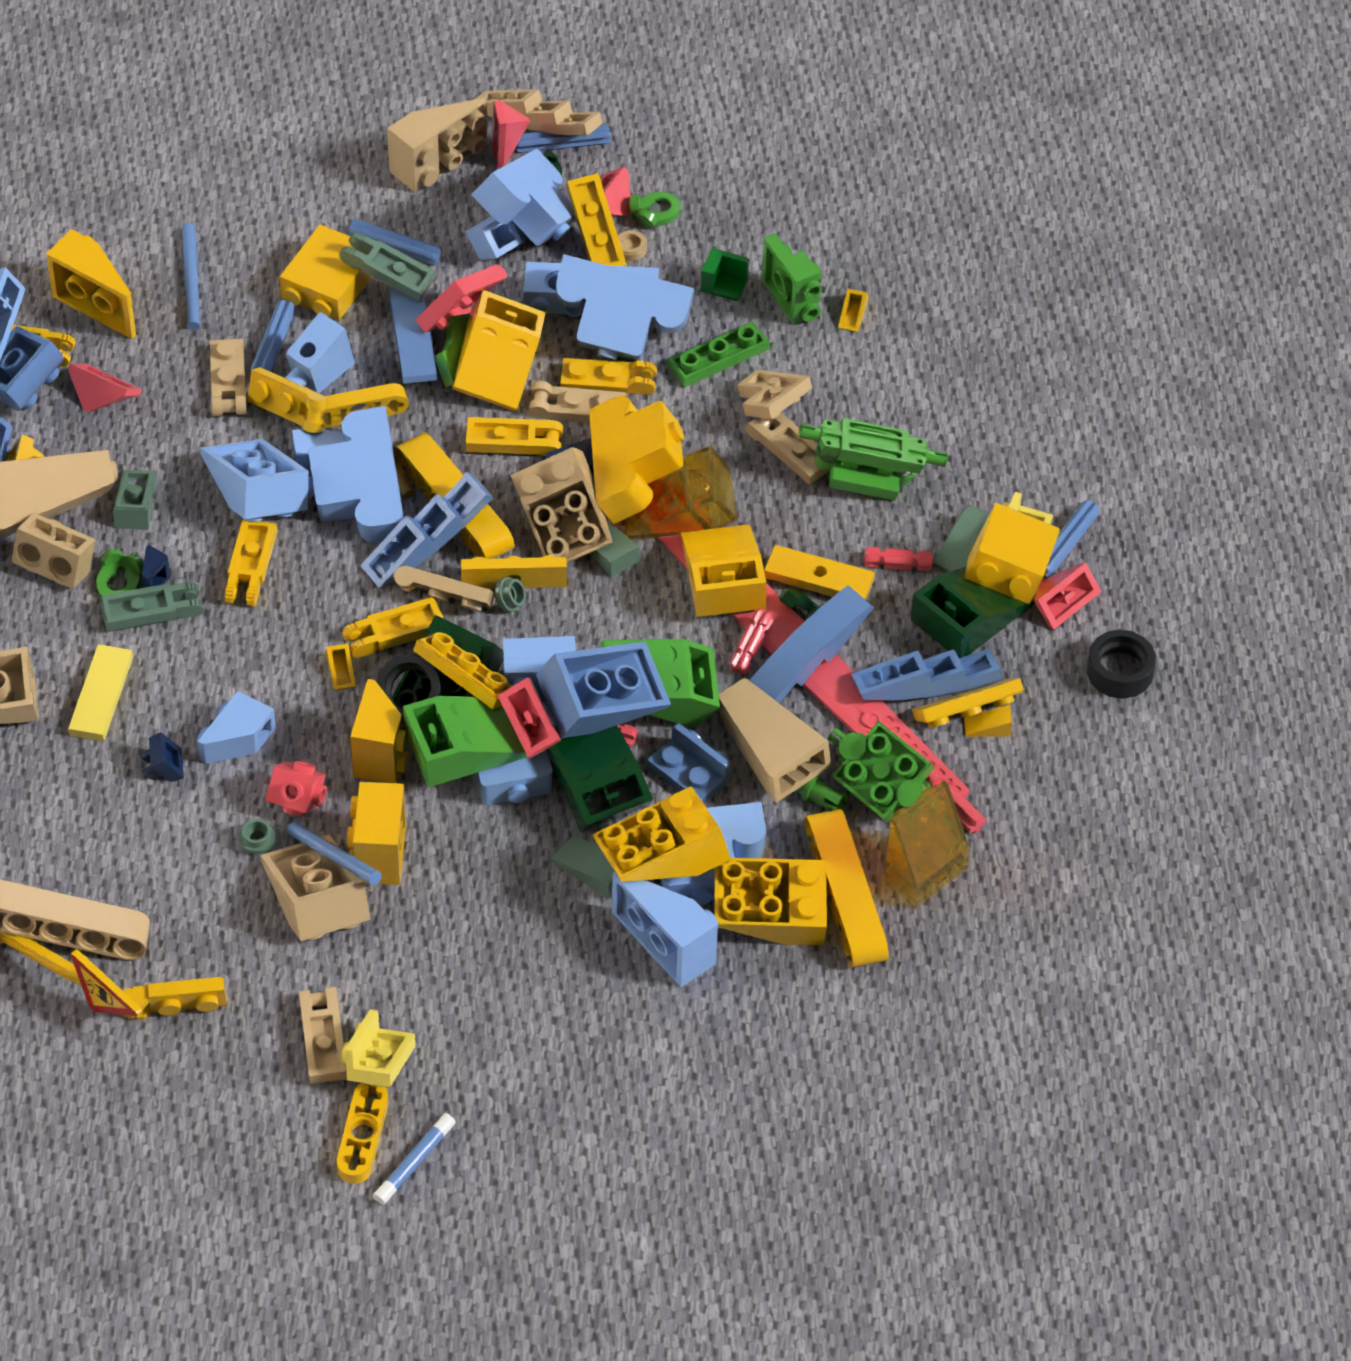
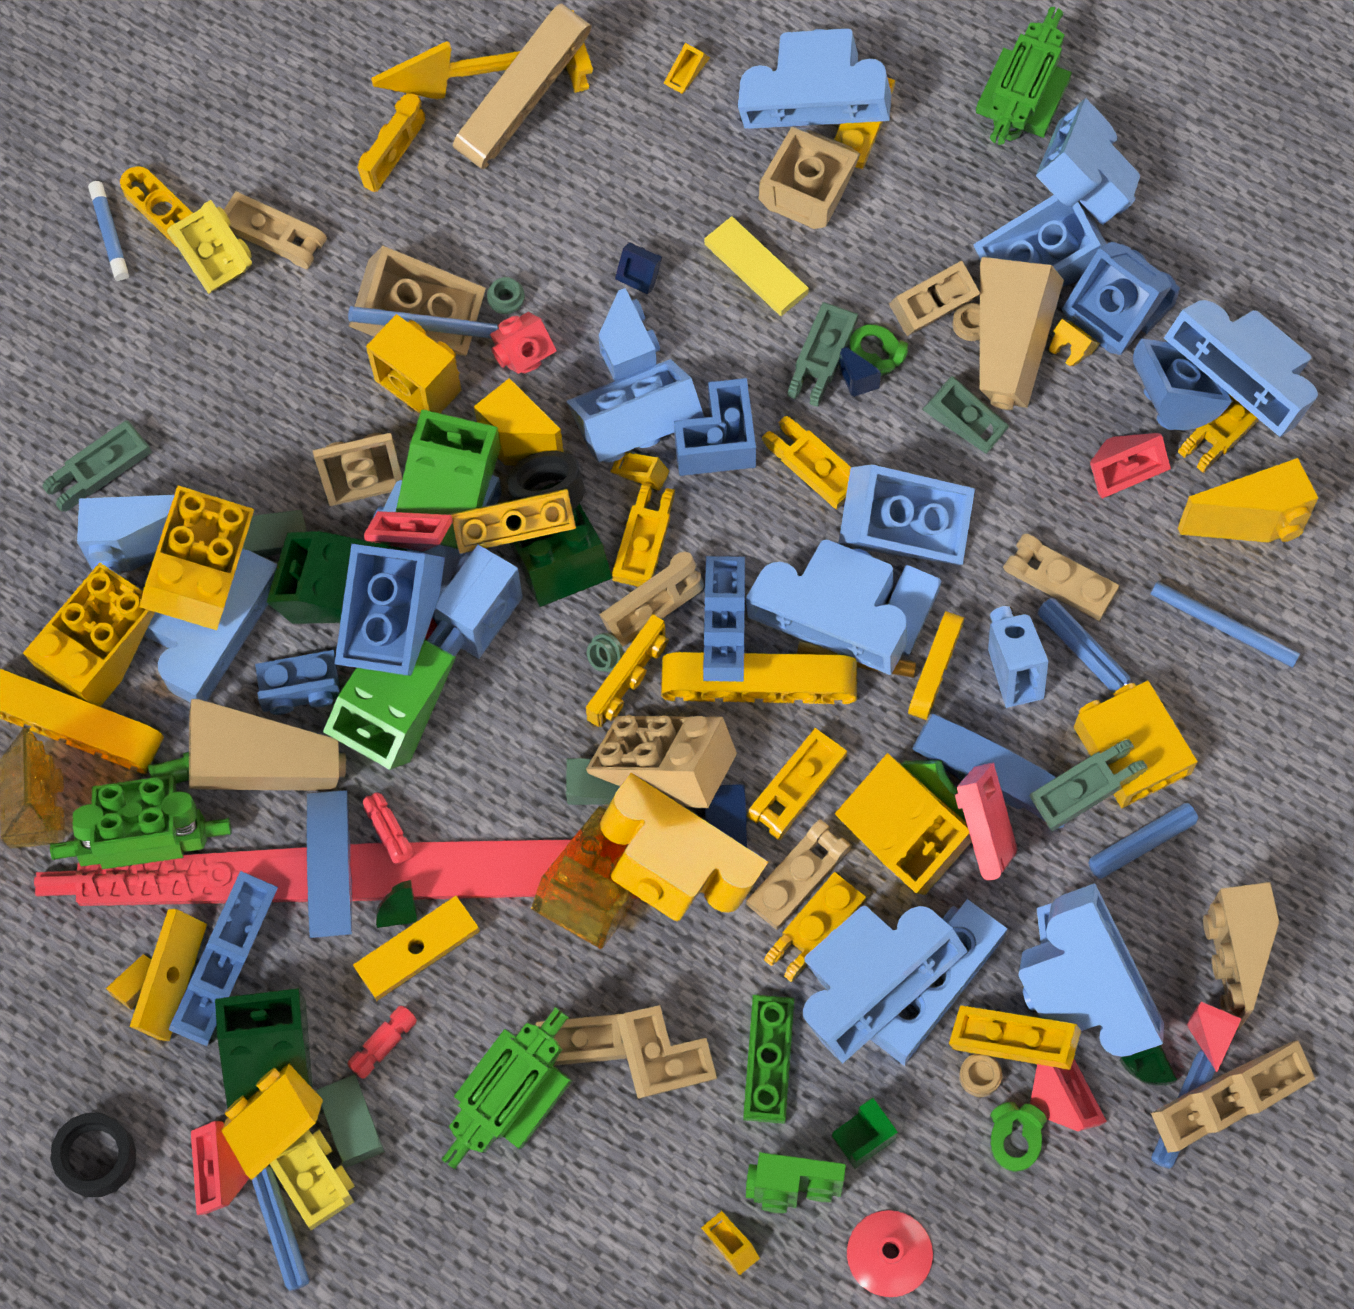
camera: 130 degrees right, 15 degrees up
(274, 612) = (723, 439): none -> medium blue brick
(287, 399) = (979, 596): yellow plate -> none
(302, 690) = (635, 410): none -> light blue slope
(490, 811) = (358, 468): none -> tan slope
(629, 1012) = (97, 465): none -> sand green hinge
(724, 570) = (482, 852): yellow slope -> none
(791, 227) = (886, 1275): none -> coral dish

